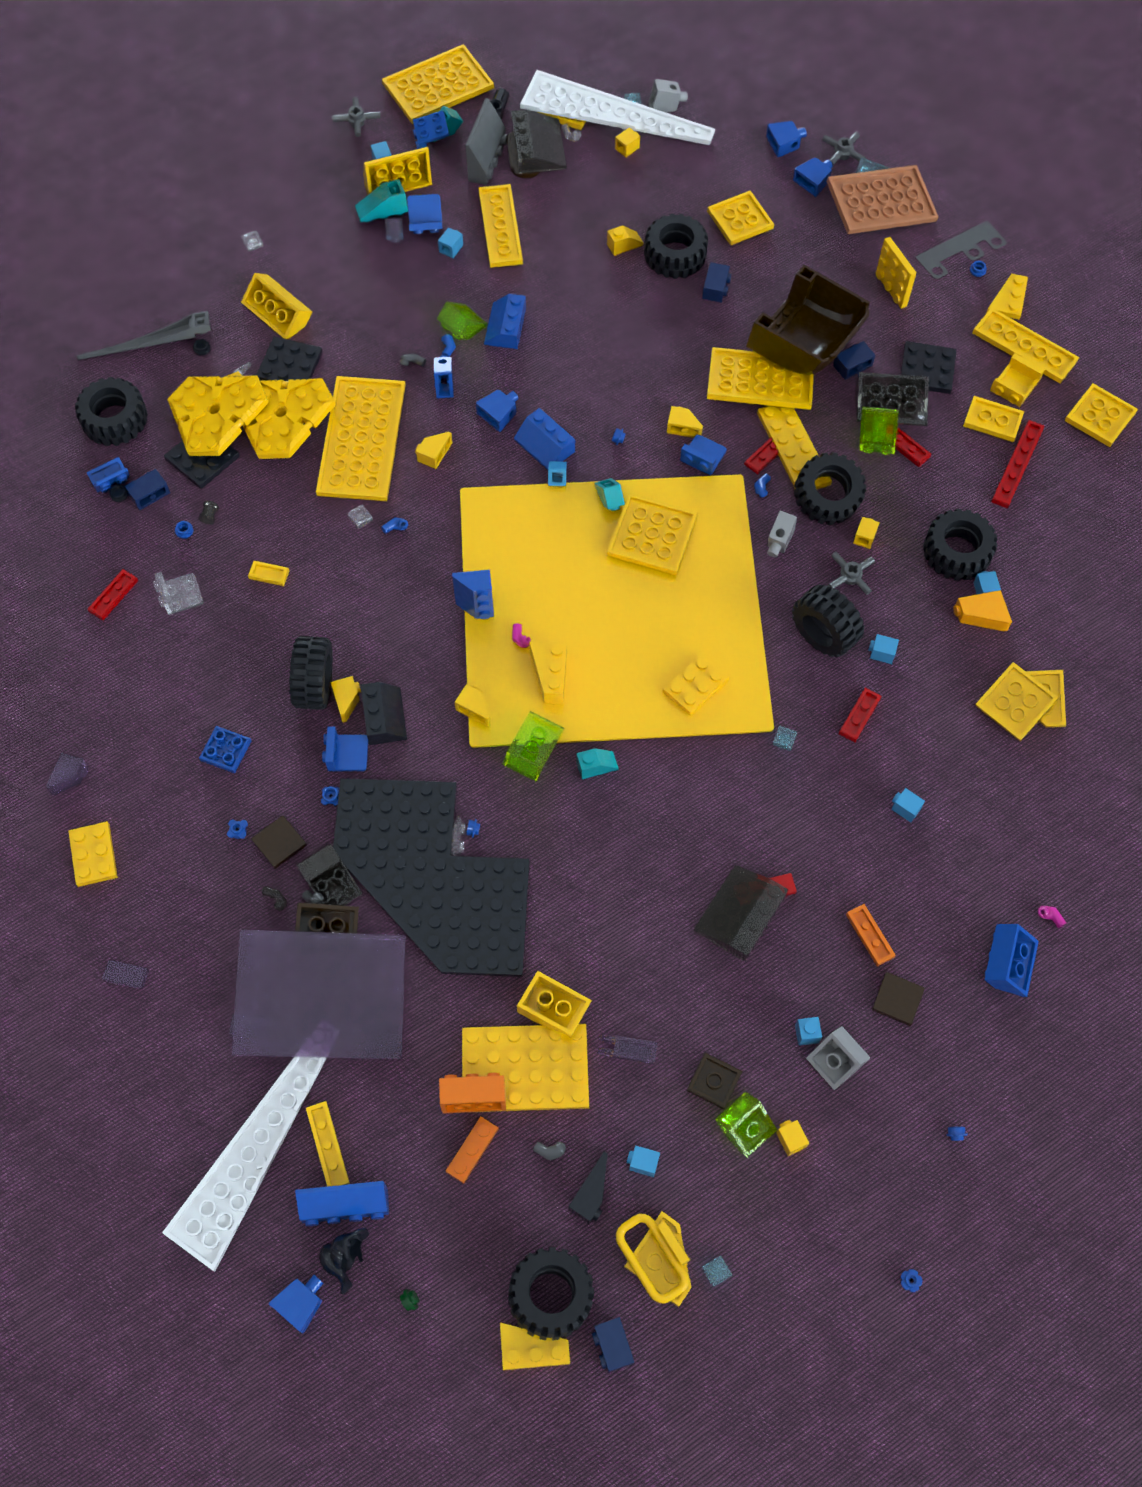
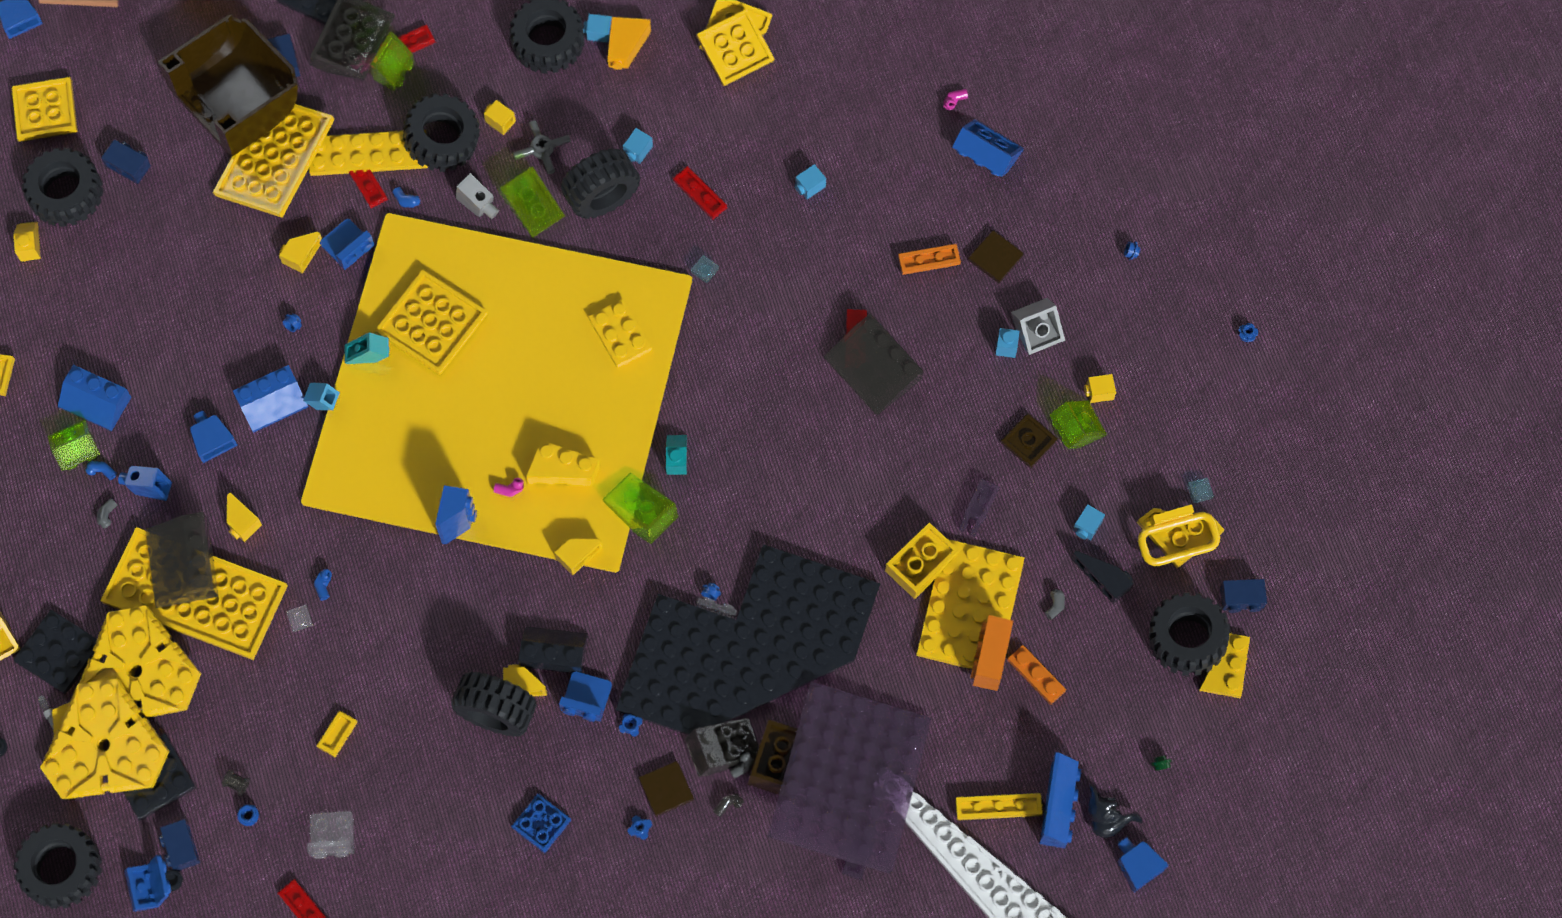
camera: 75 degrees left, 5 degrees up
(384, 419) = (182, 560): none -> clear smoke slope
(795, 577) = (531, 201): none -> clear neon green slope

